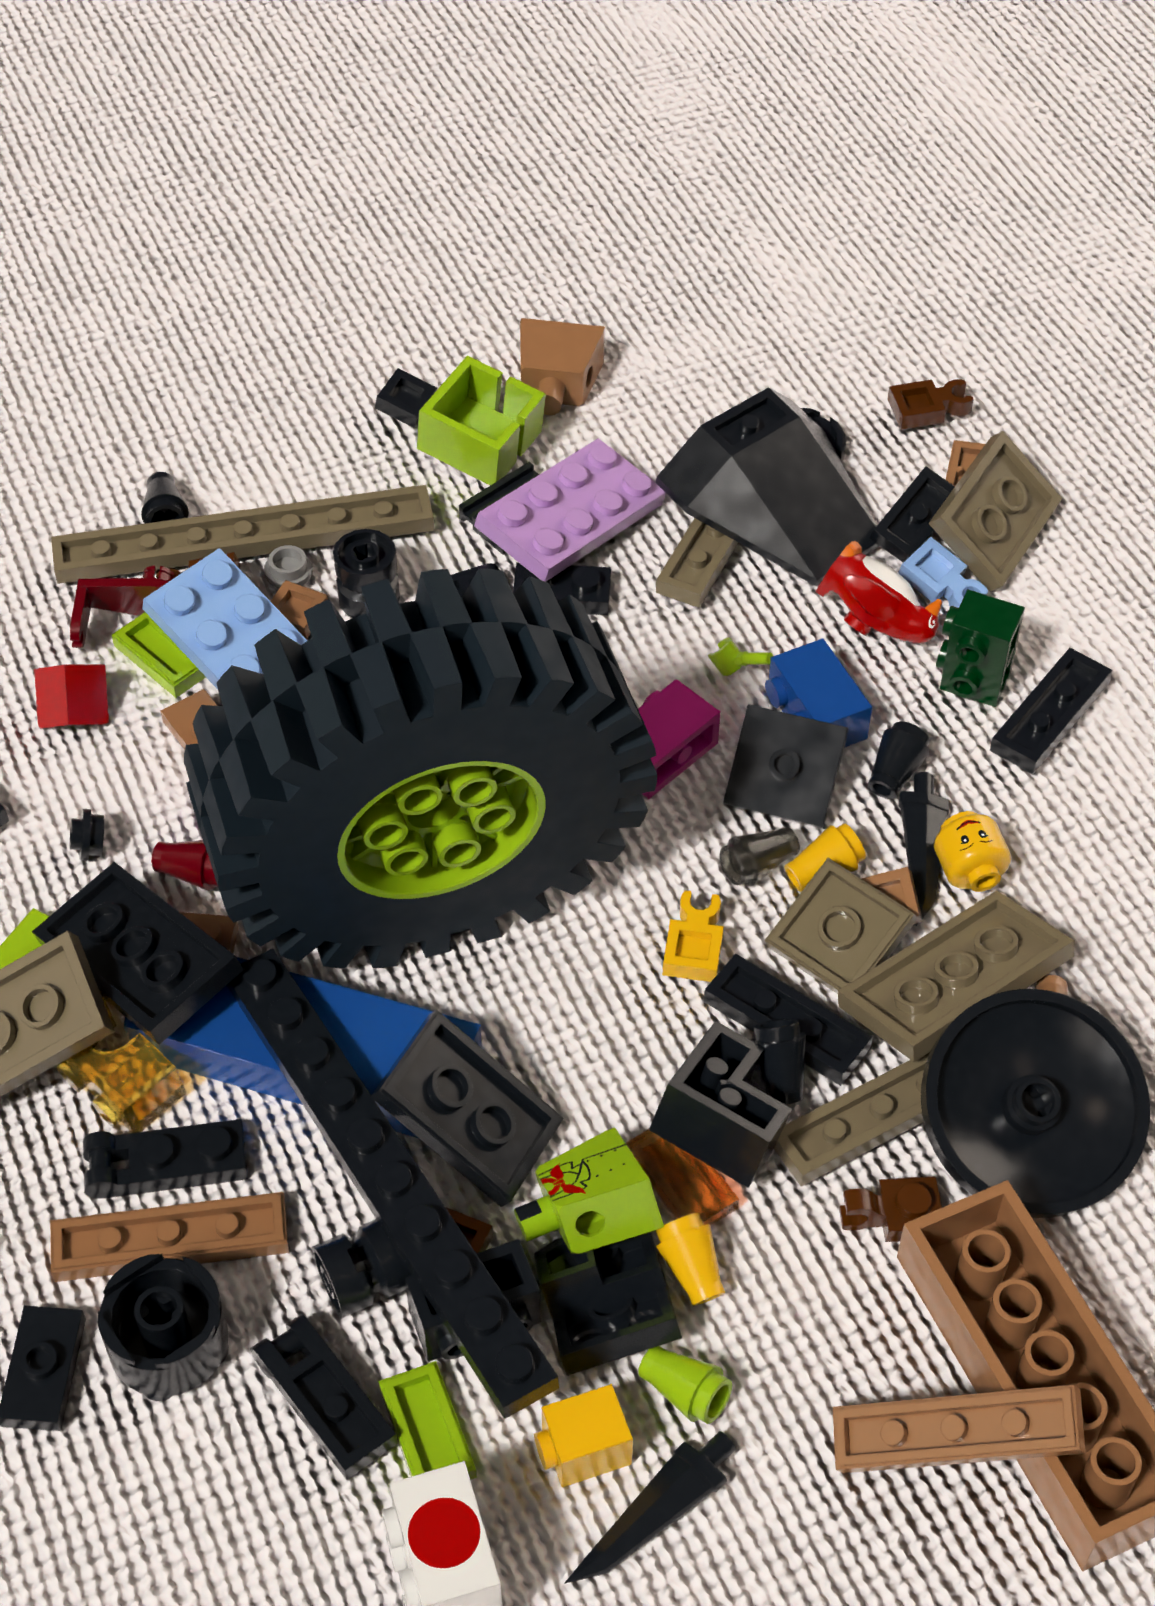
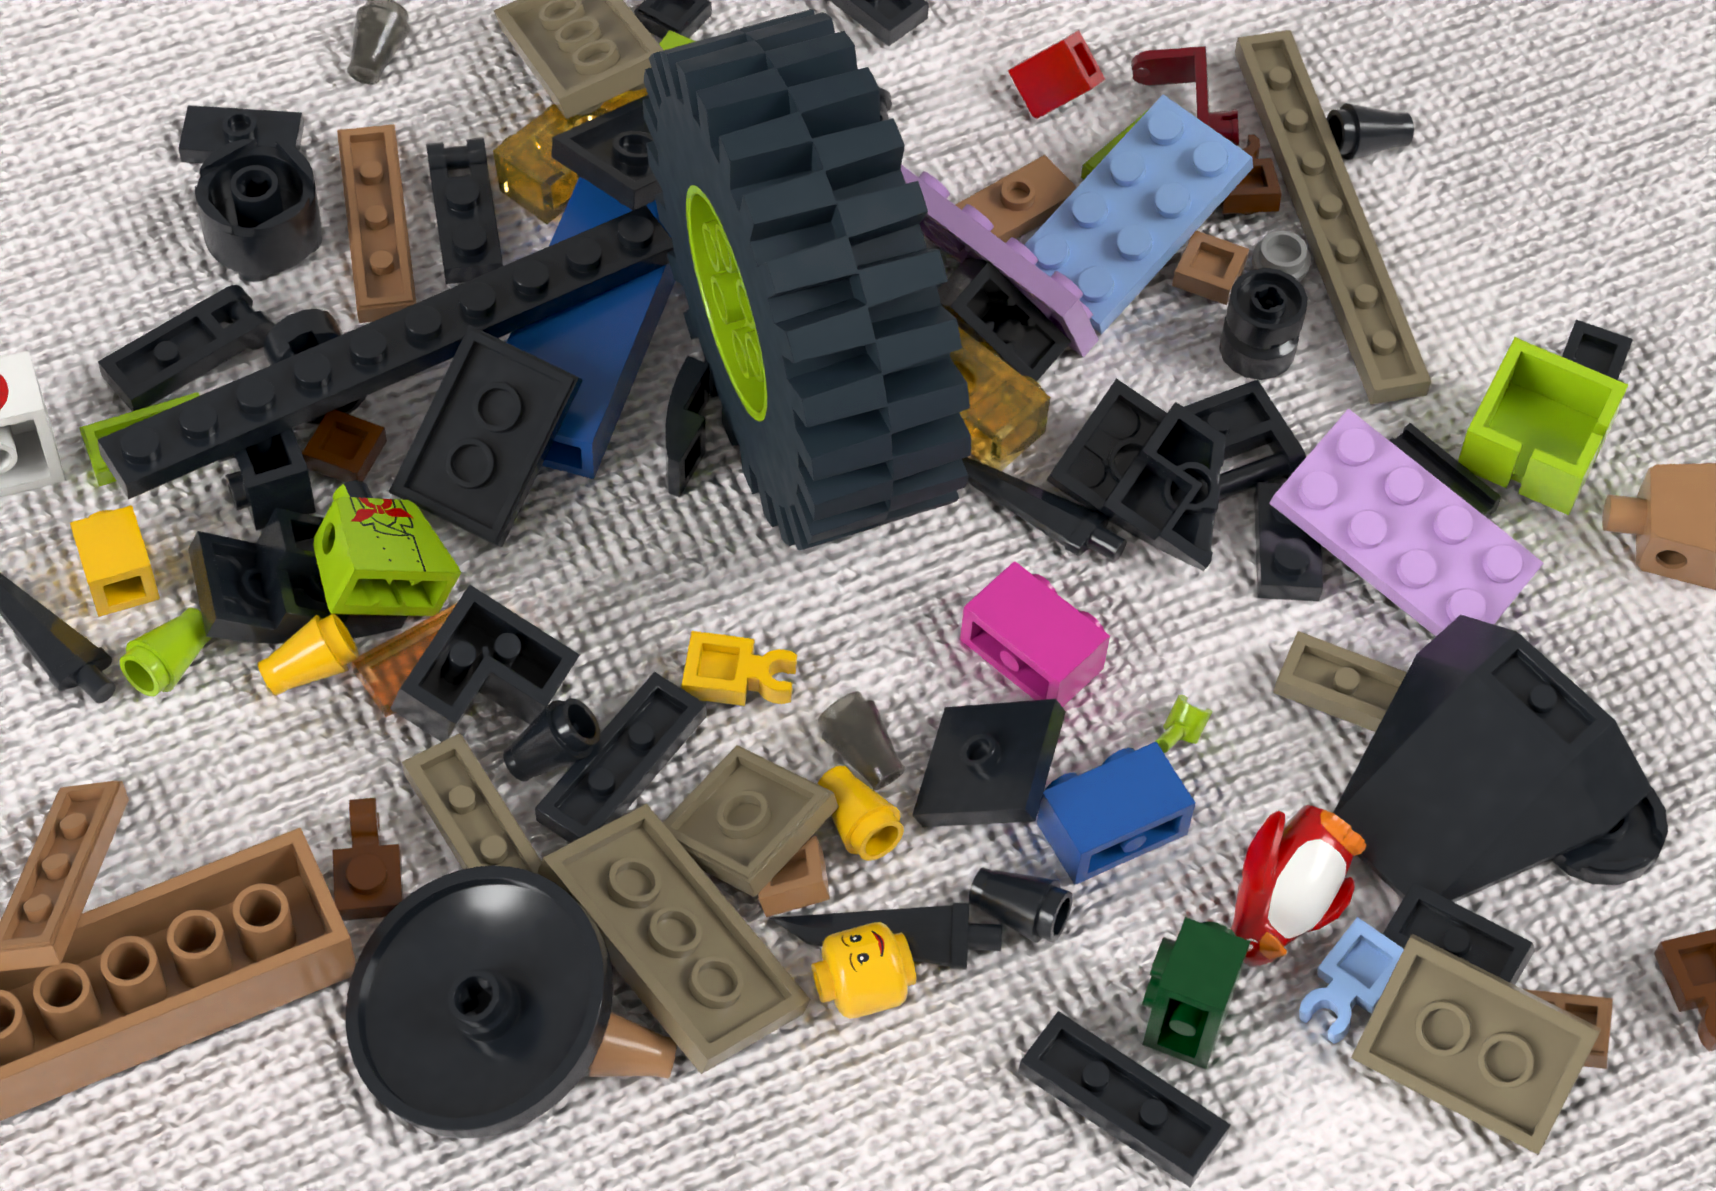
camera: 85 degrees right, 5 degrees up
(459, 974) = (685, 425): none -> black slope

